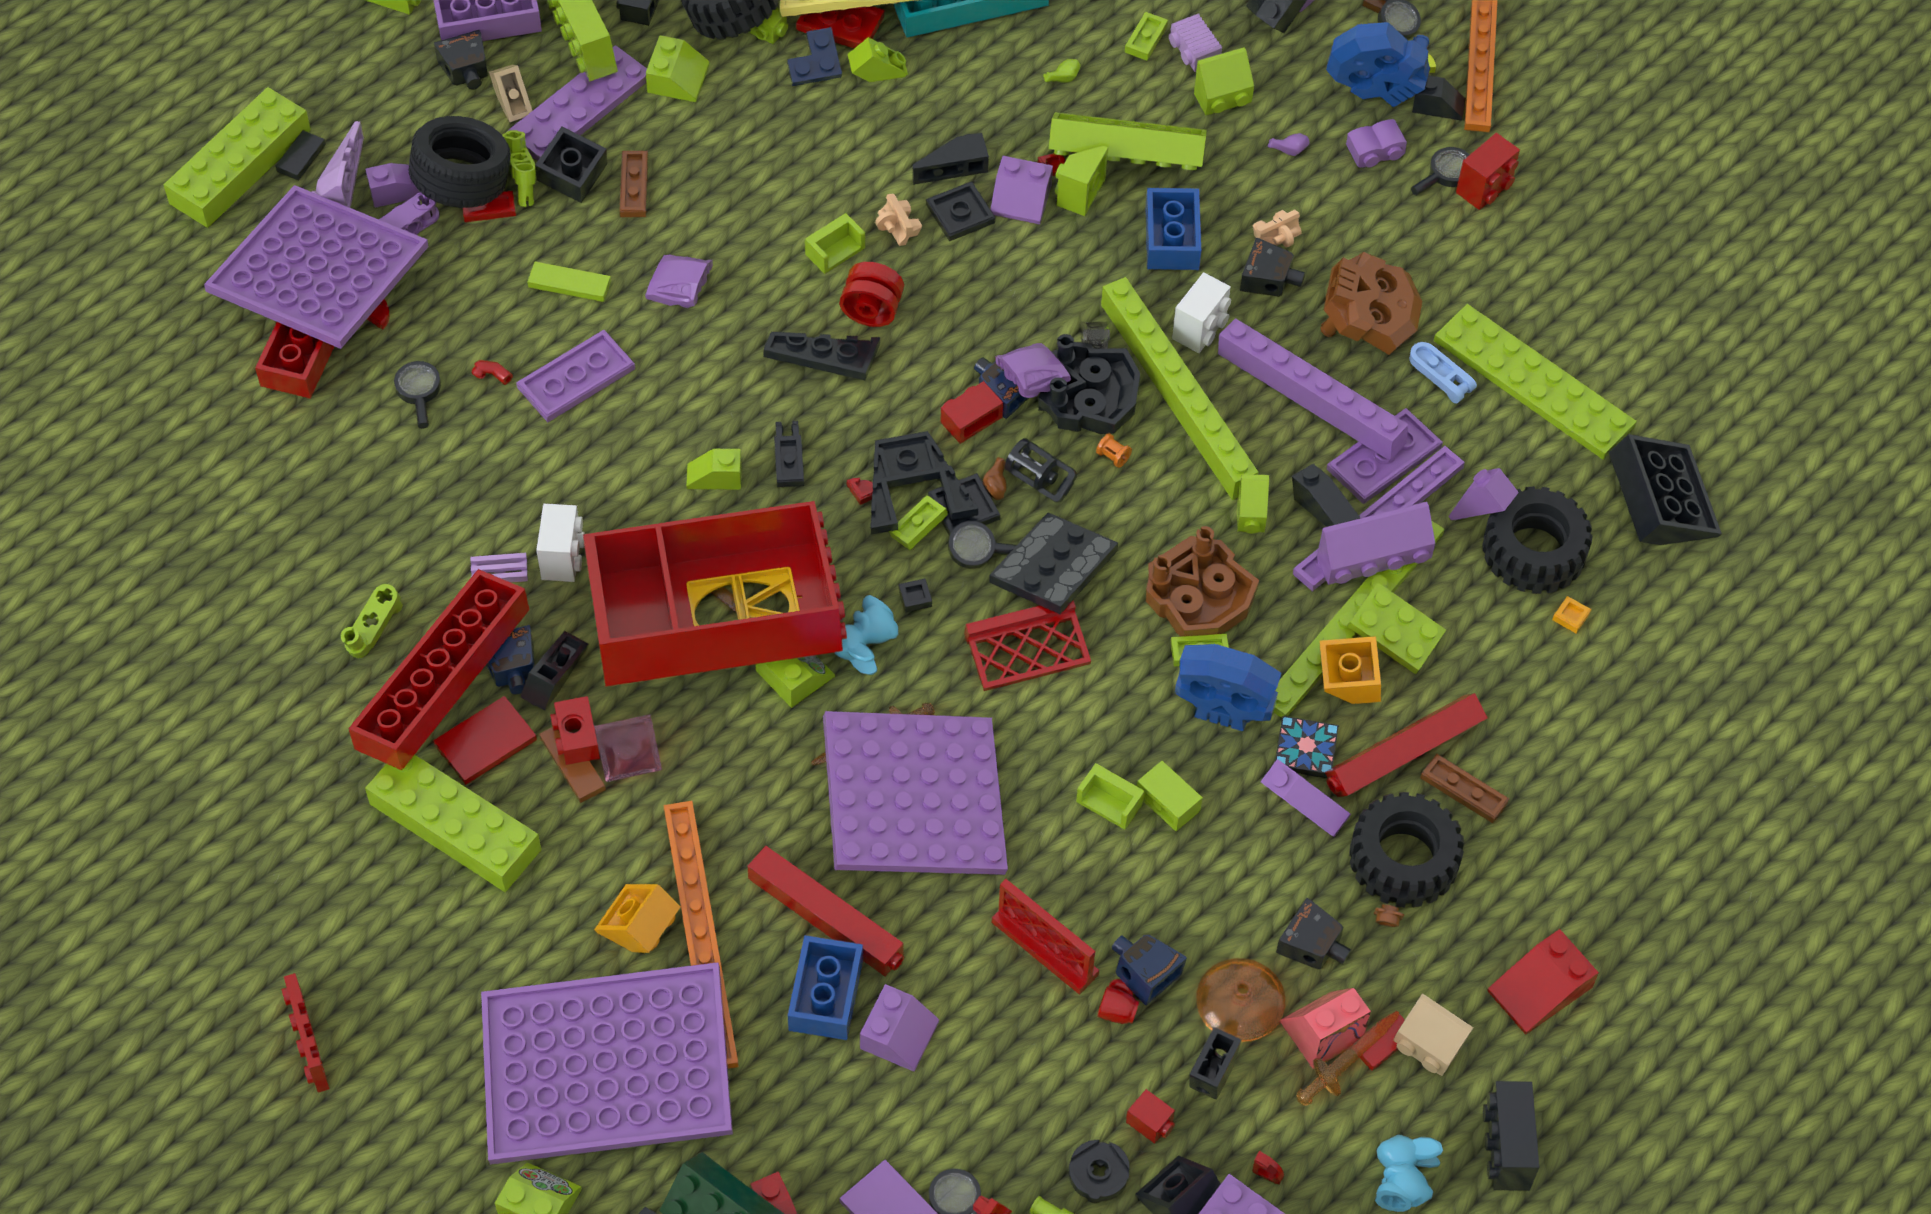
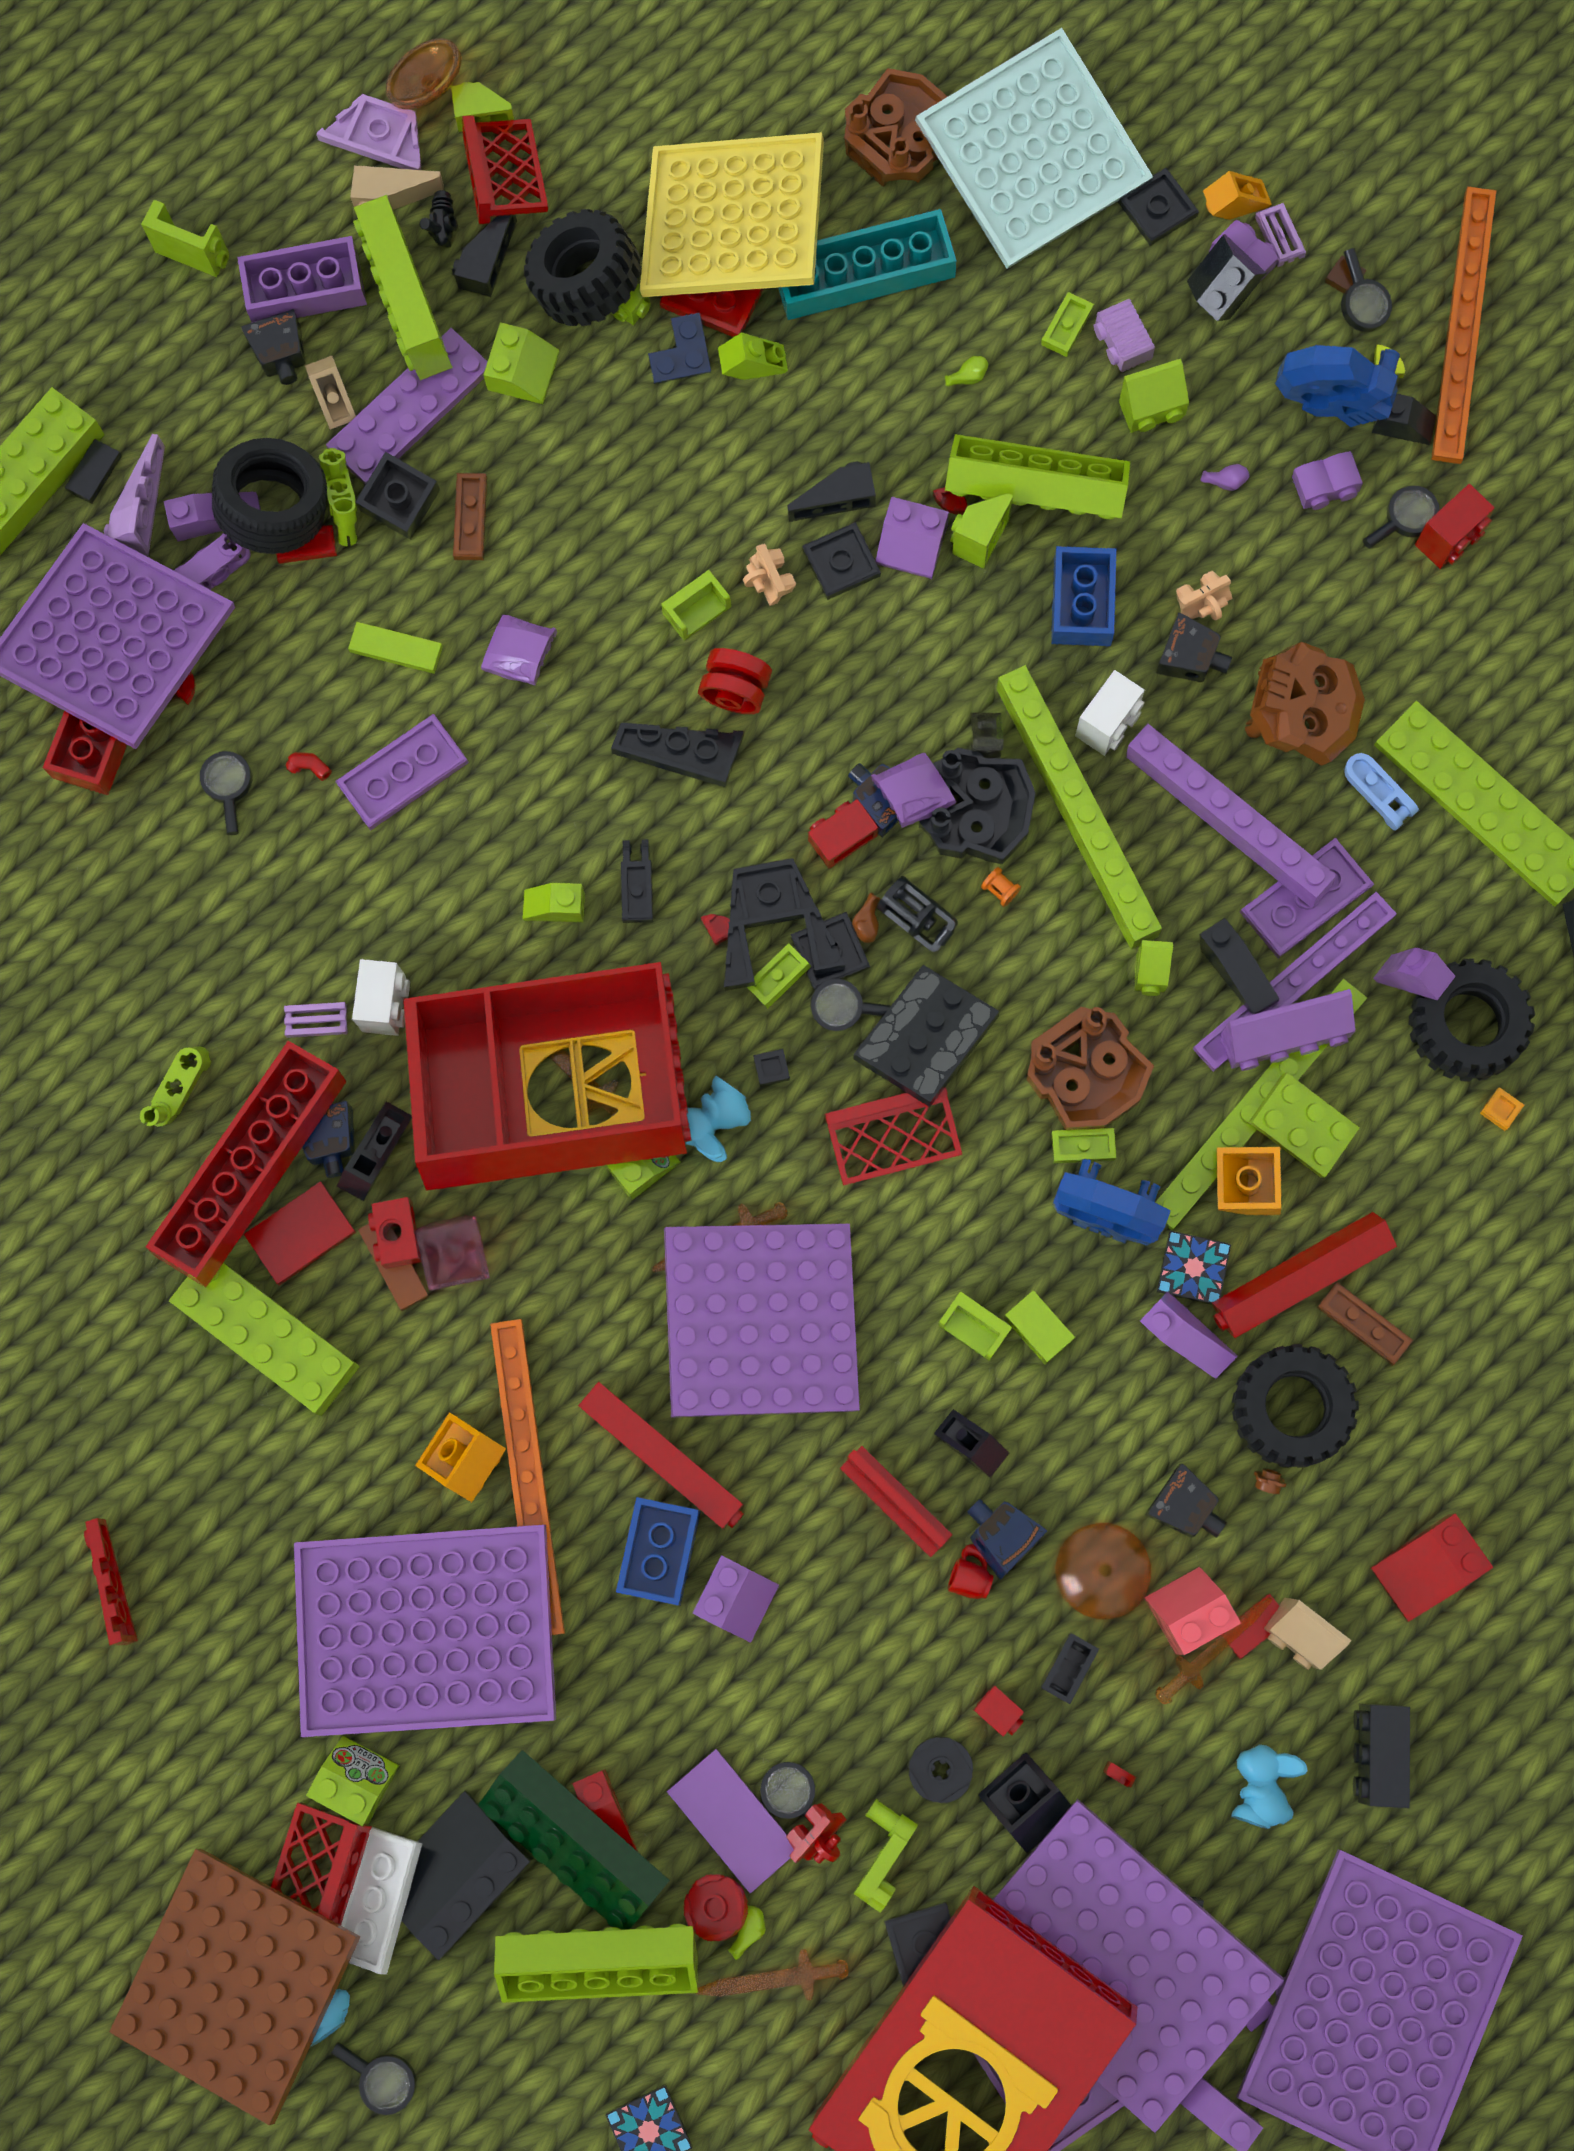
camera: 10 degrees right, 20 degrees up
(1114, 892) = (972, 1443): none -> black slope

